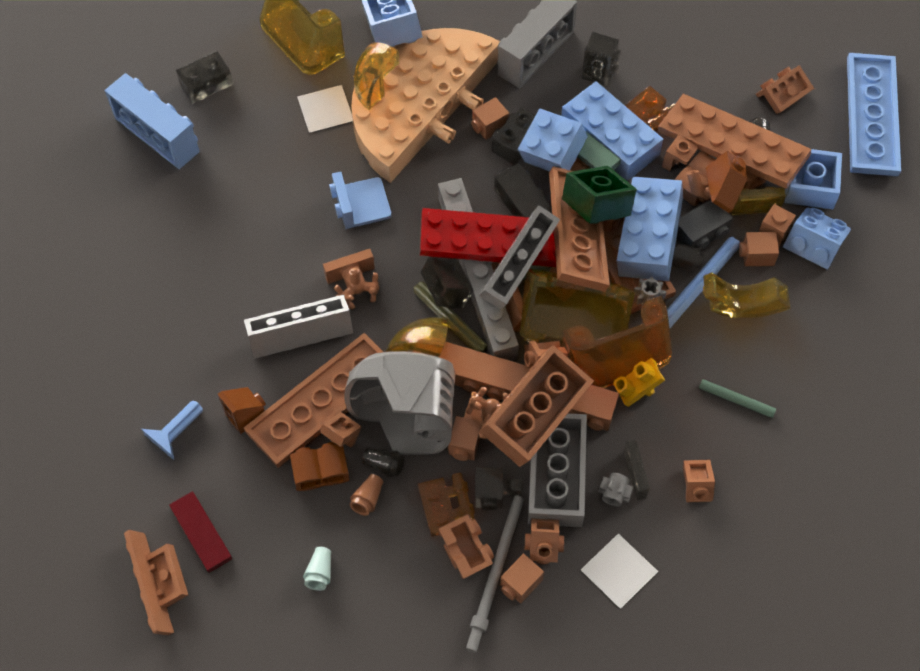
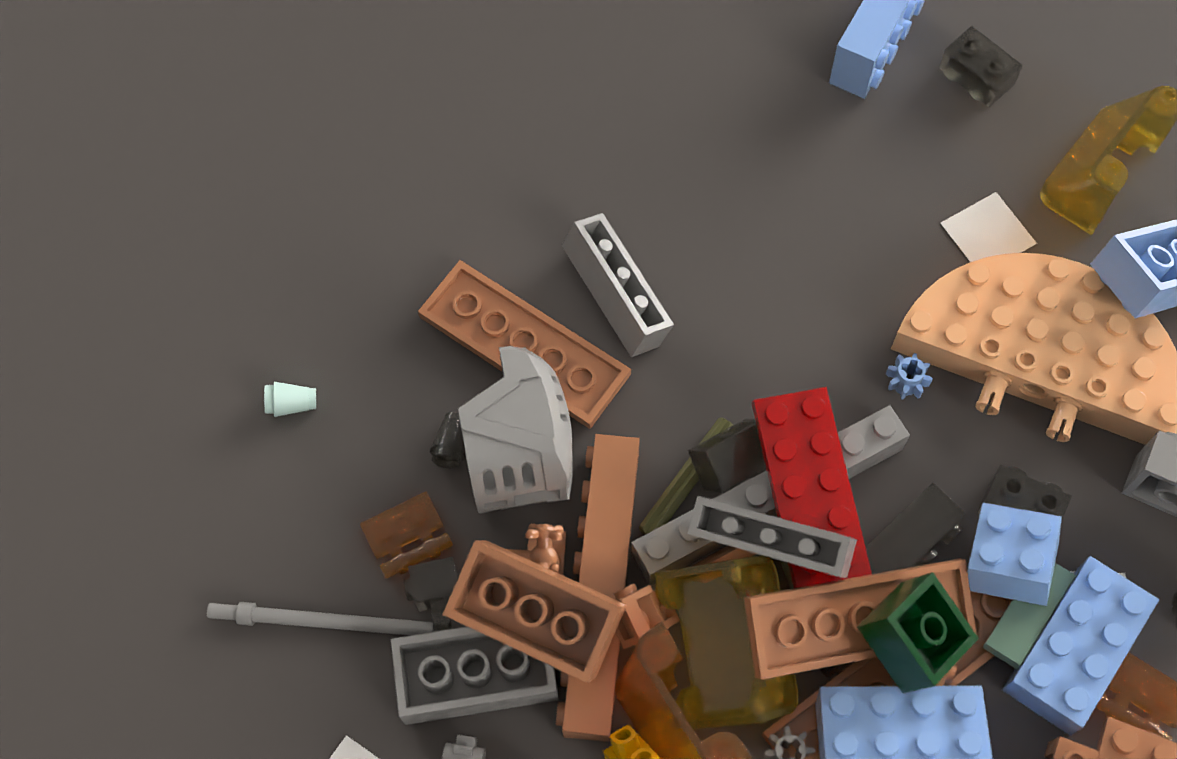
camera: 80 degrees right, 5 degrees up
(158, 579) = (245, 220): nougat bracket -> none
(176, 426) = (432, 178): light blue piece -> none
(200, 532) = (318, 253): dark red tile -> none
(241, 406) = (483, 246): dark orange slope -> none
(319, 467) = (425, 363): dark orange brick -> none
(341, 430) = (474, 371): nougat bracket -> none
(351, 269) = (723, 329): nougat piece -> none
(359, 201) = (839, 311): light blue bracket -> none
(366, 496) = (398, 432): nougat cone -> none
(370, 70) = (1045, 260): clear yellow brick -> none
(415, 174) = (911, 366): none -> light blue gear
(422, 335) = (638, 442): clear yellow brick -> none
(464, 439) = (502, 530): nougat brick -> none
(465, 546) = (342, 573): nougat cylinder -> none
(489, 118) = (1041, 455): nougat brick -> none
(521, 579) = (311, 654): nougat brick -> none
(544, 541) = (365, 672): nougat brick -> none

